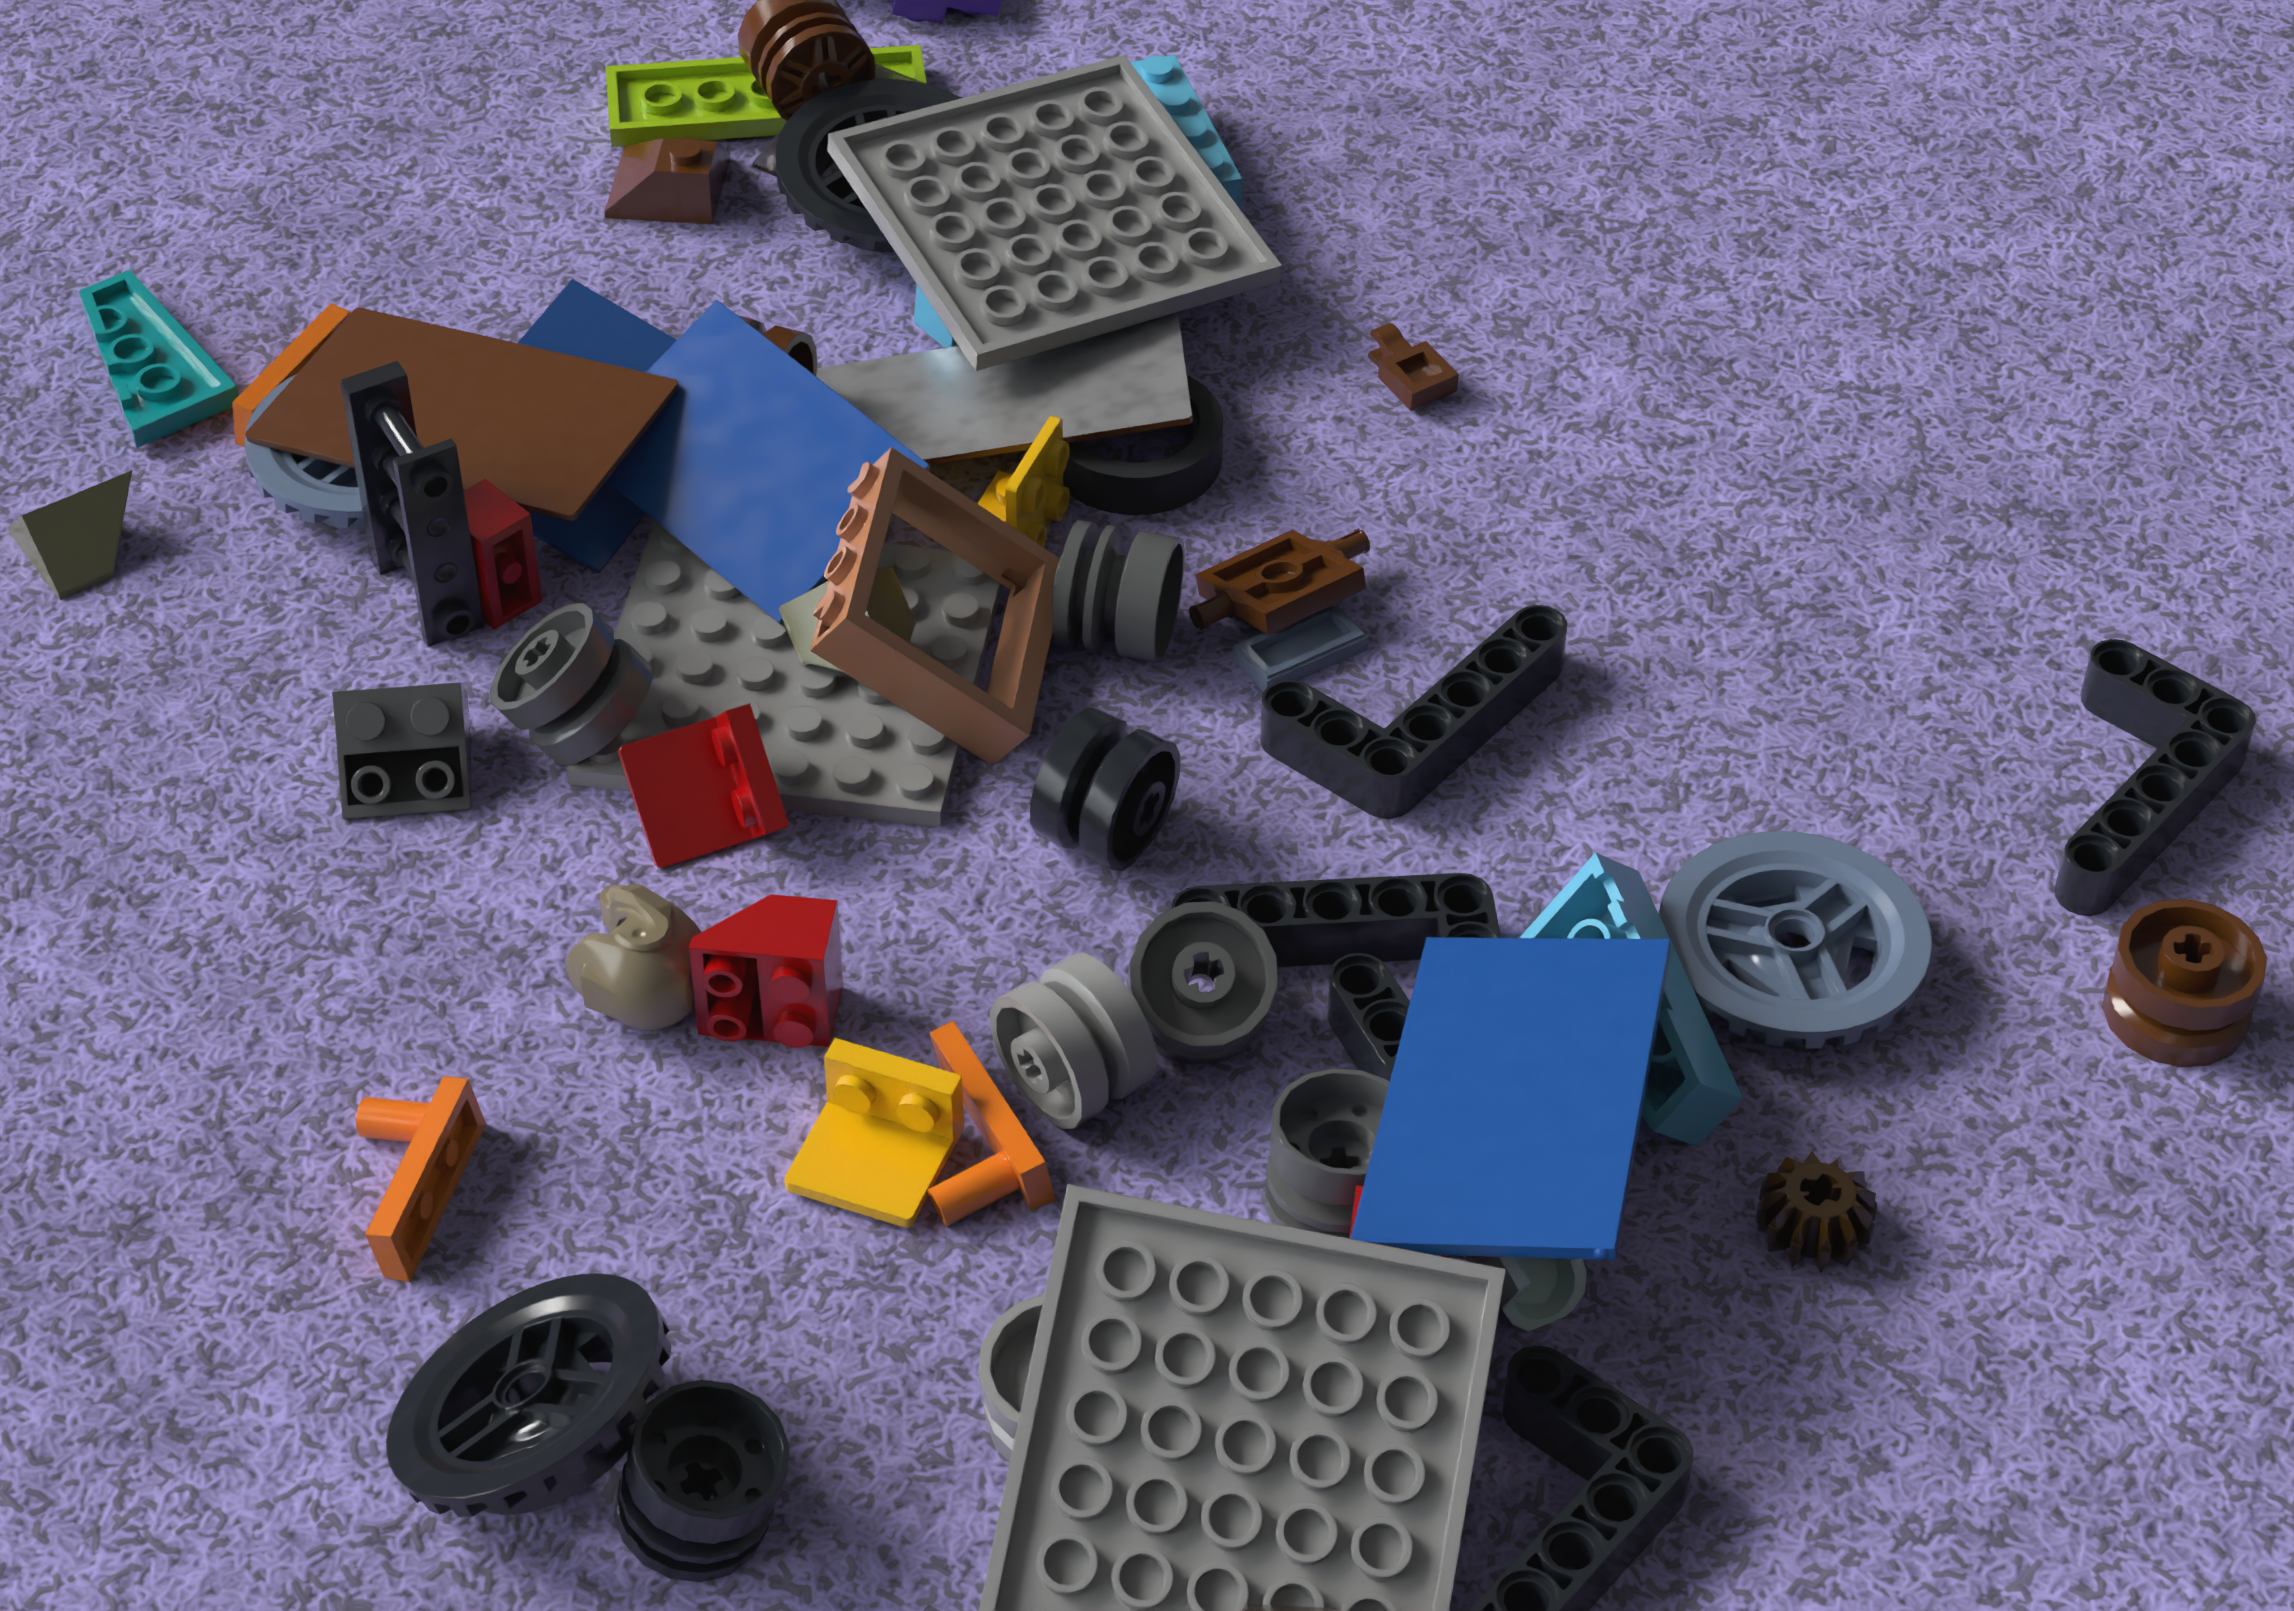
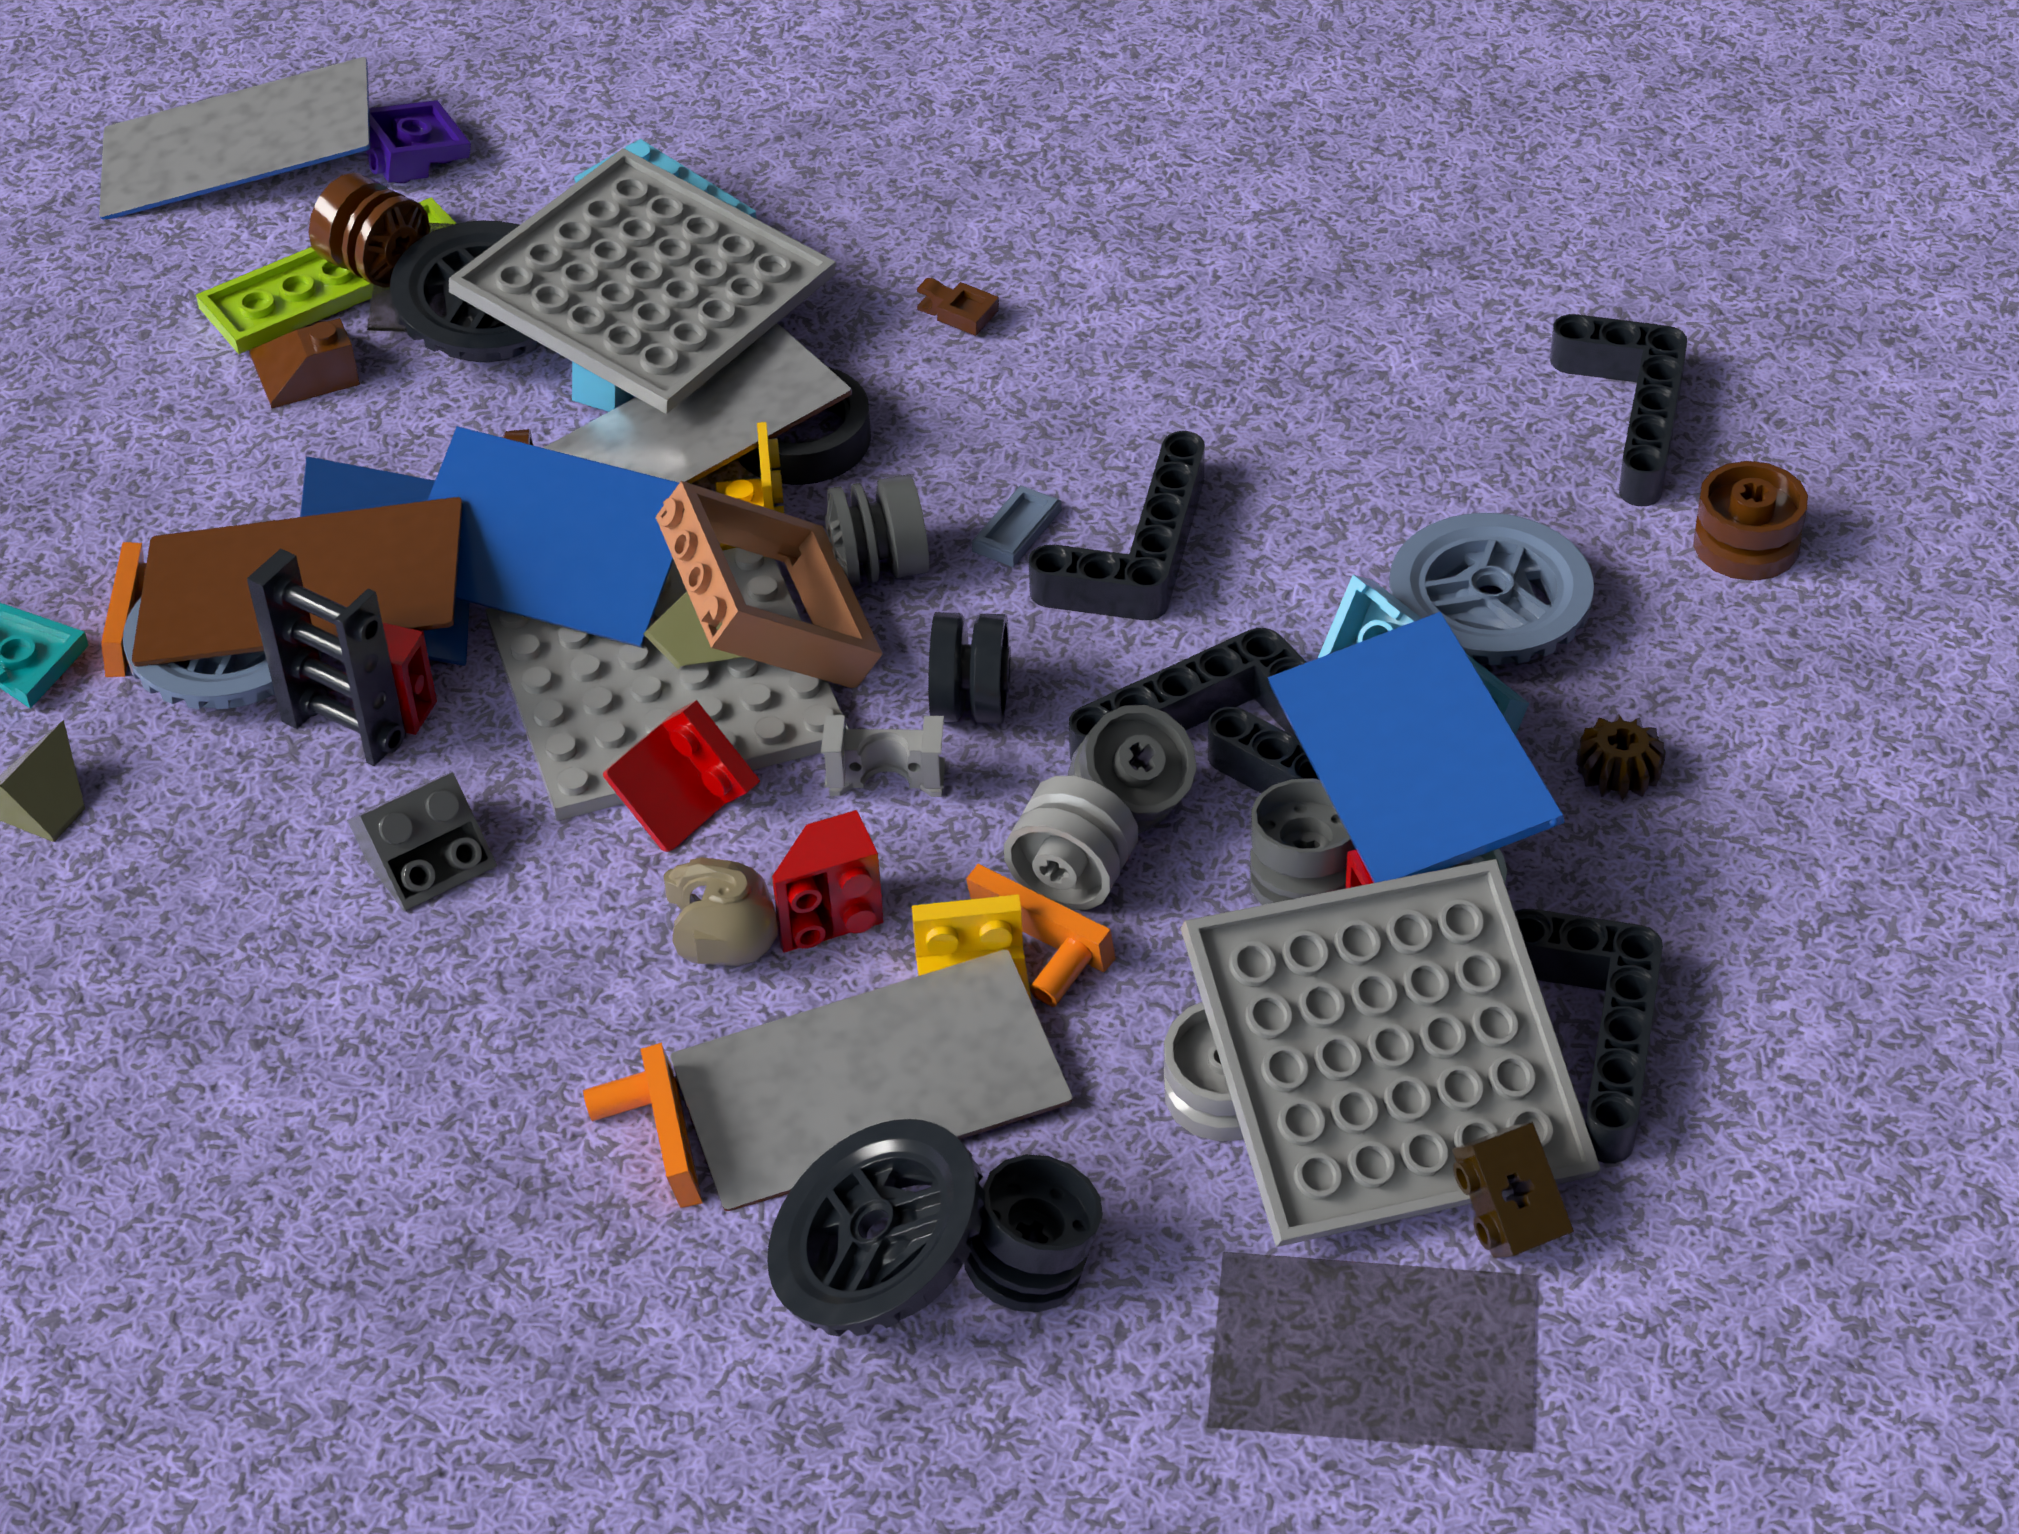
camera: 25 degrees left, 0 degrees up
(571, 684) = (530, 743): dark grey wheel -> none
(708, 1213) = (931, 1048): none -> flat silver piece
(917, 842) = (861, 753): none -> light grey piece
(1281, 581) = (979, 483): reddish brown plate -> none

